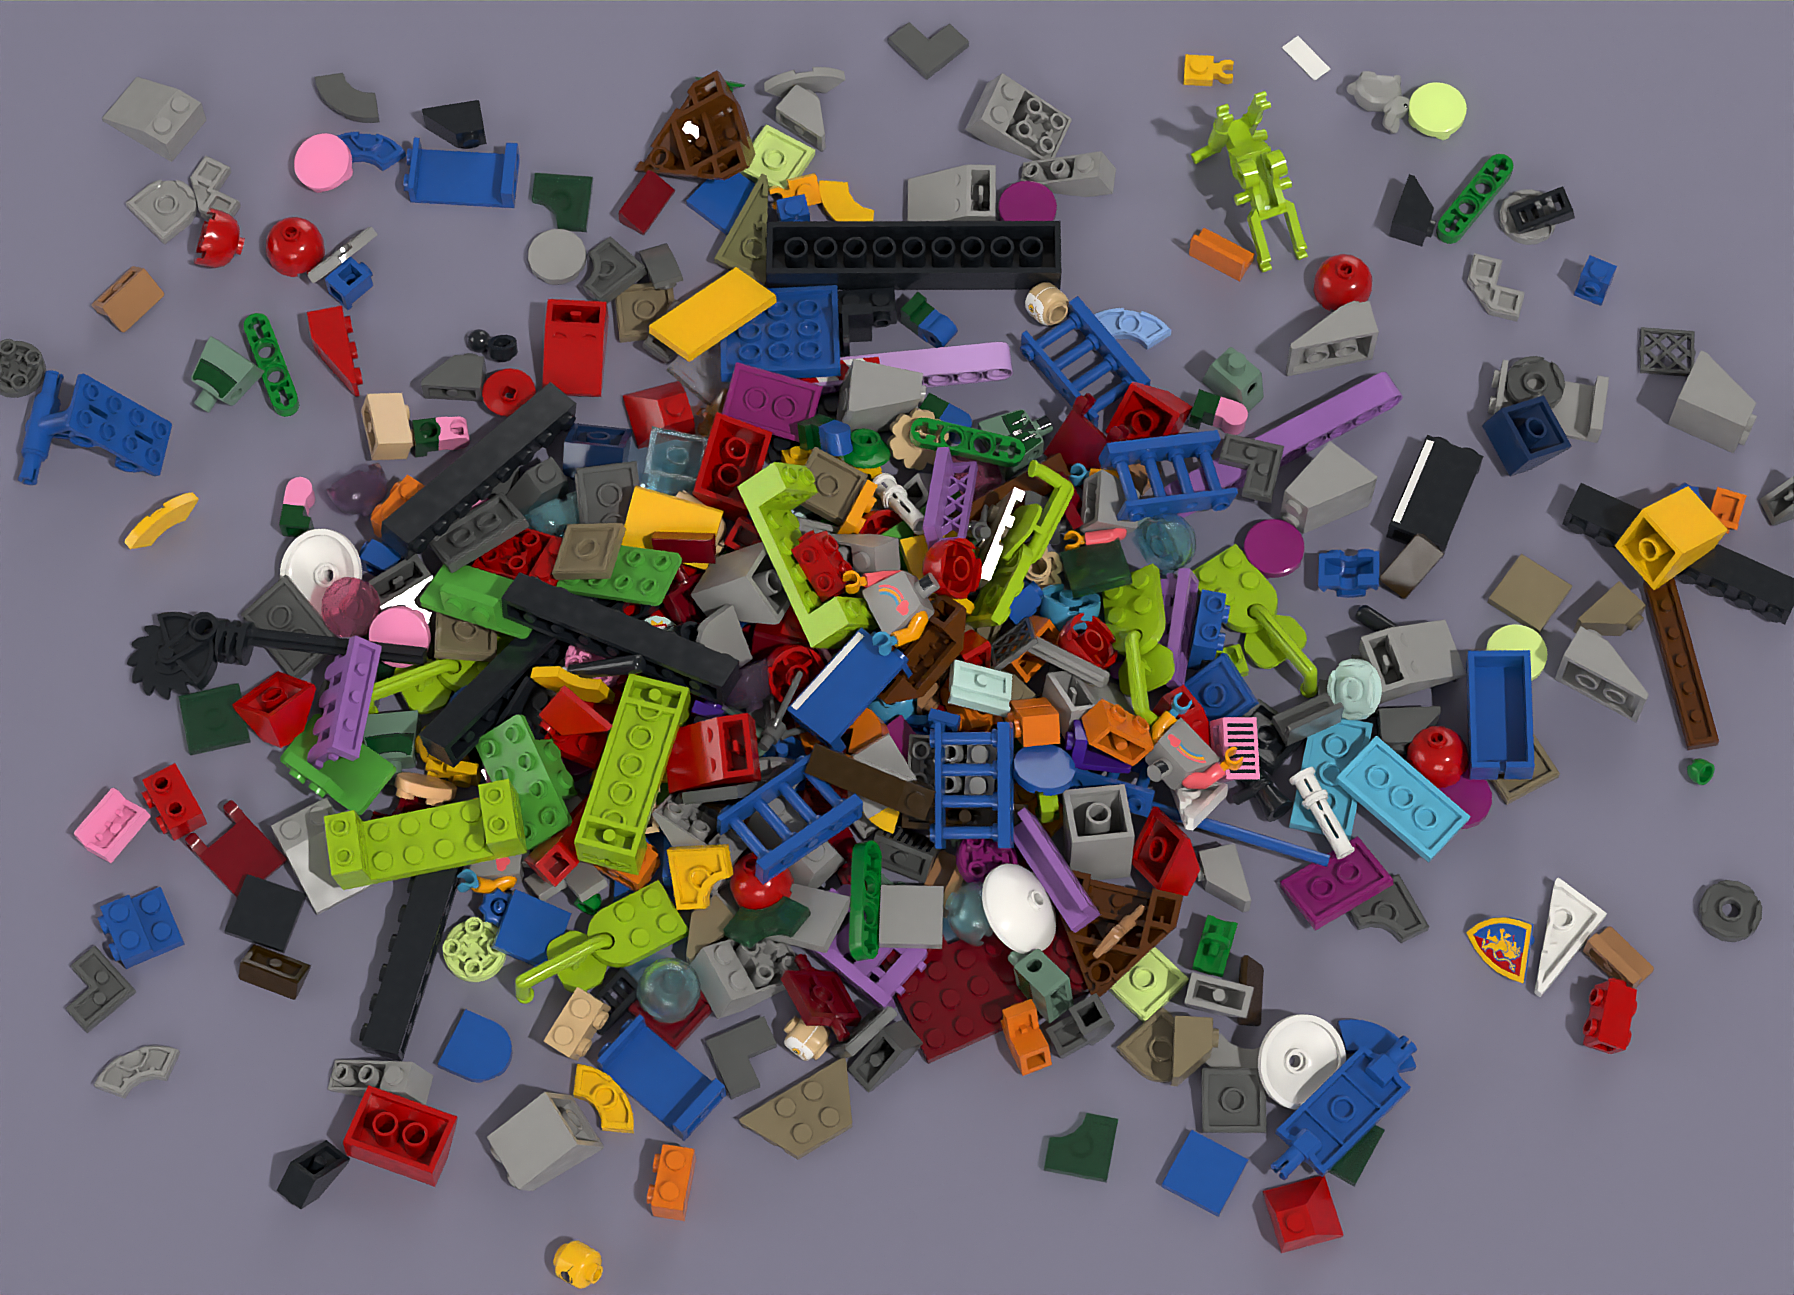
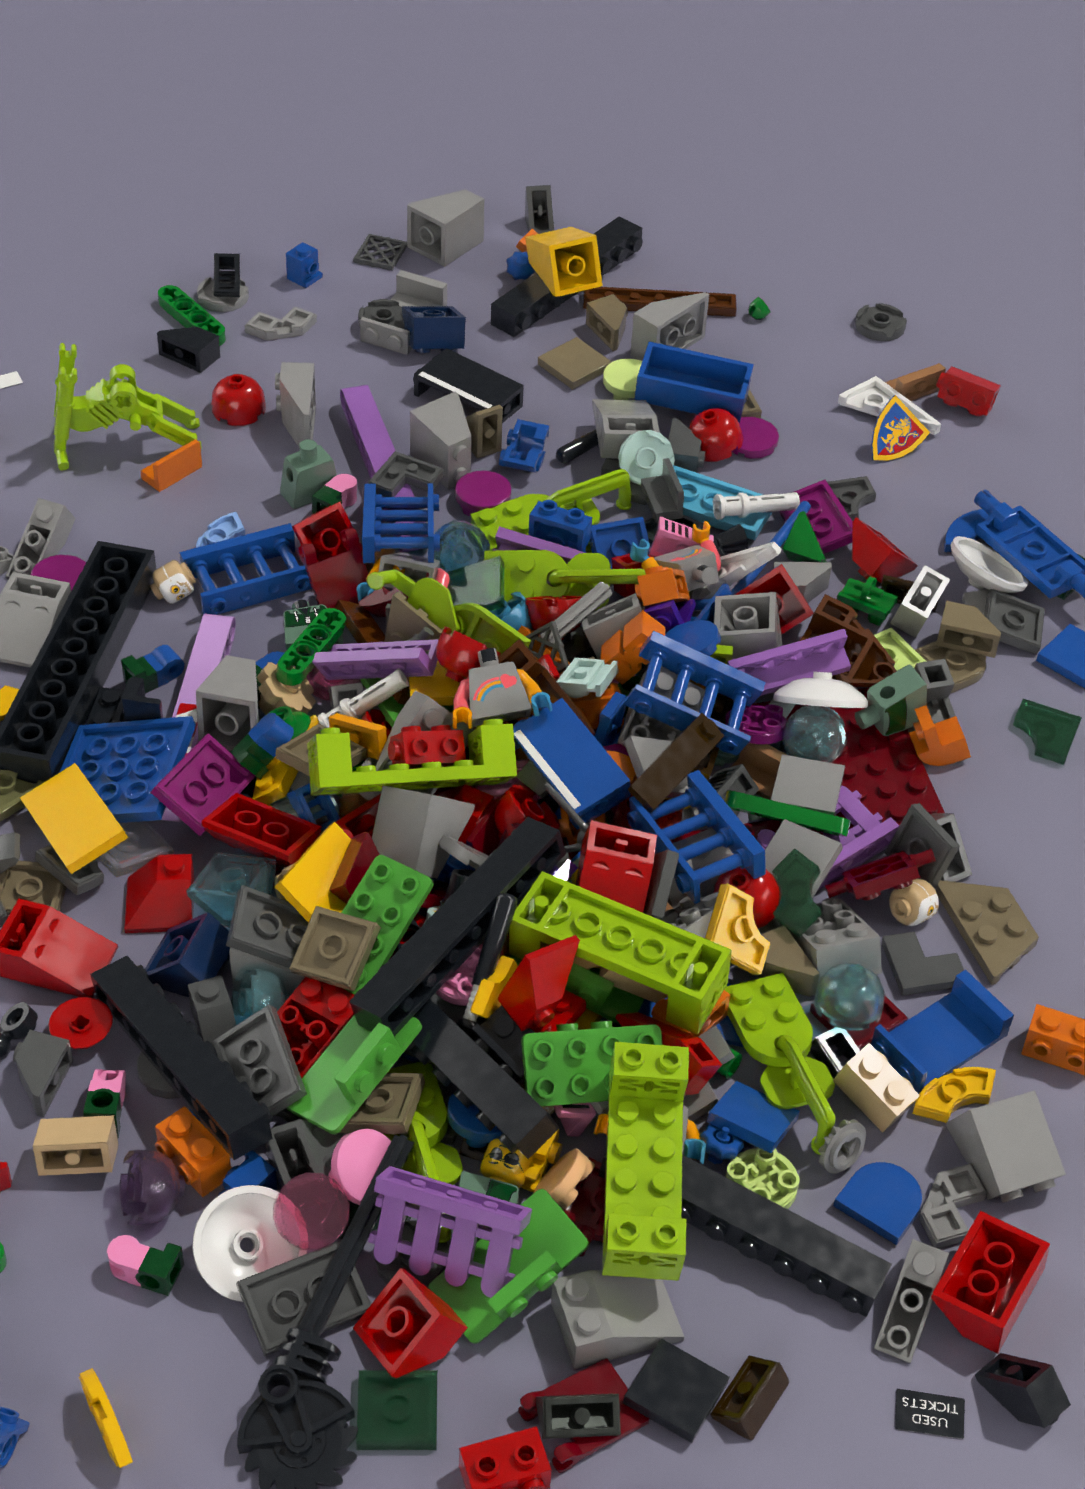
camera: 80 degrees left, 20 degrees down
(226, 843) = (579, 1415): none -> pearl dark grey slope
(287, 1110) = (930, 1413): none -> black sticker
(473, 1098) = (940, 1213): none -> light grey tile
(511, 1004) = (842, 1146): none -> light grey gear
(708, 412) = (187, 841): clear orange piece -> none
(1118, 931) = (857, 647): medium nougat hand -> none
(1276, 873) = (802, 542): none -> green slope
(1298, 951) = (877, 554): none -> red slope
(1363, 523) = (486, 431): none -> dark tan slope
(1381, 94) = (63, 334): light grey animal -> none
(1402, 799) = (752, 457): medium azure plate -> none
(1411, 565) = (529, 405): slope -> none
(1437, 110) = (96, 316): yellowish green tile -> none

